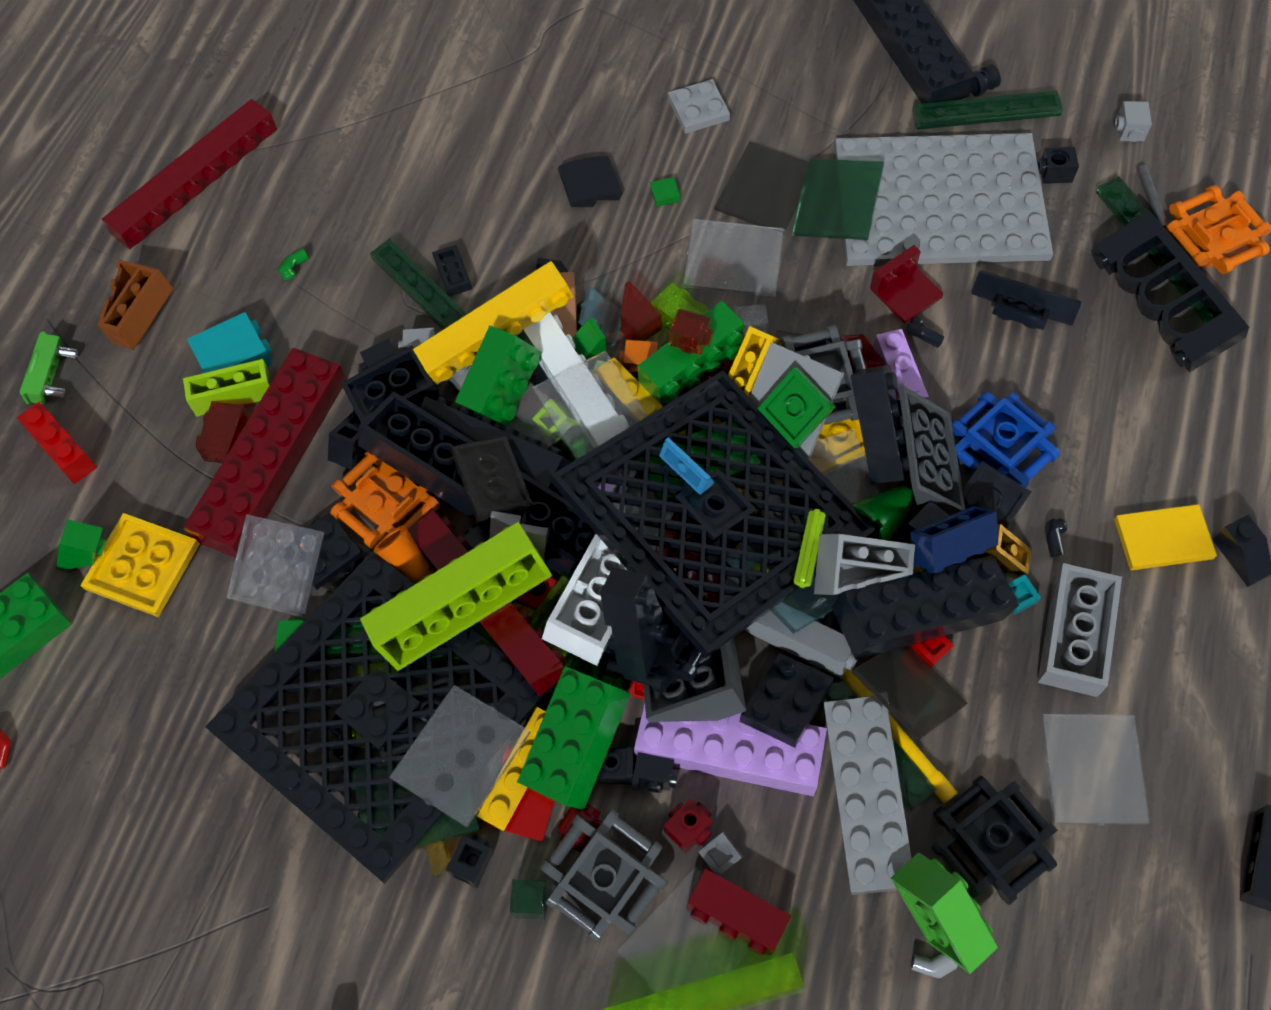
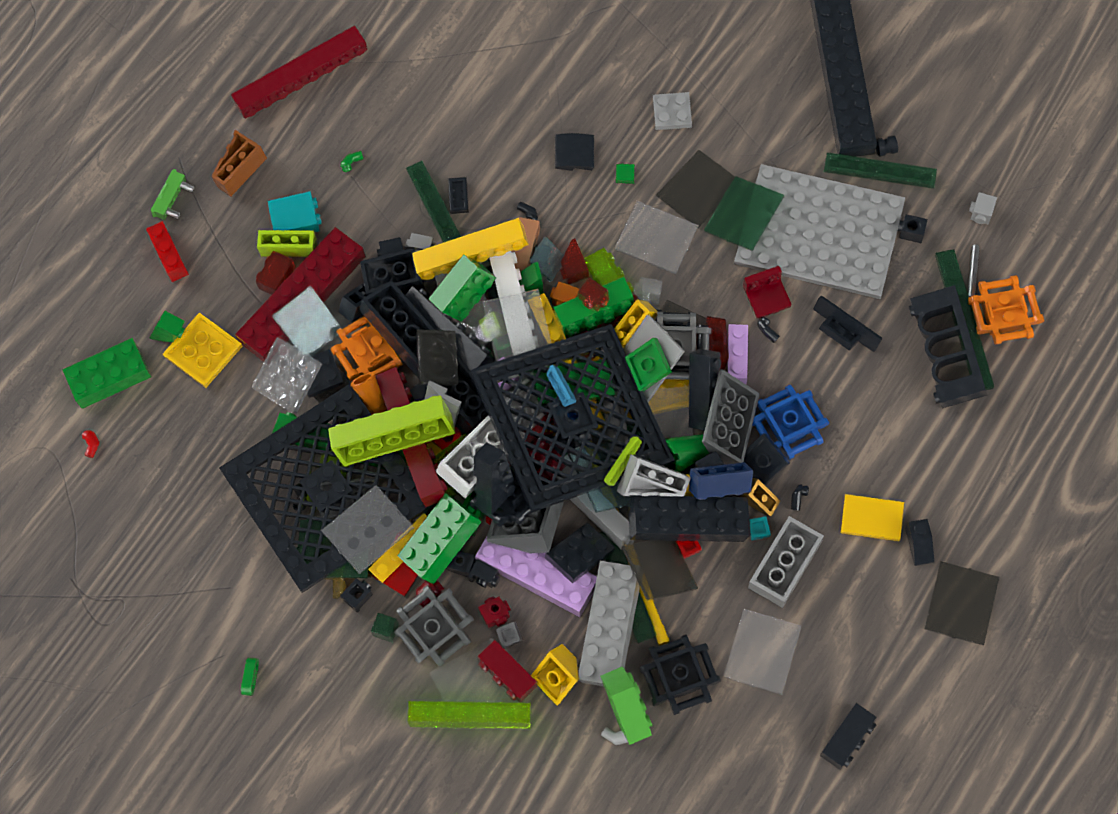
camera: 20 degrees right, 5 degrees up
(286, 483) = (307, 322): none -> clear light blue piece
(816, 894) = (557, 673): none -> yellow slope

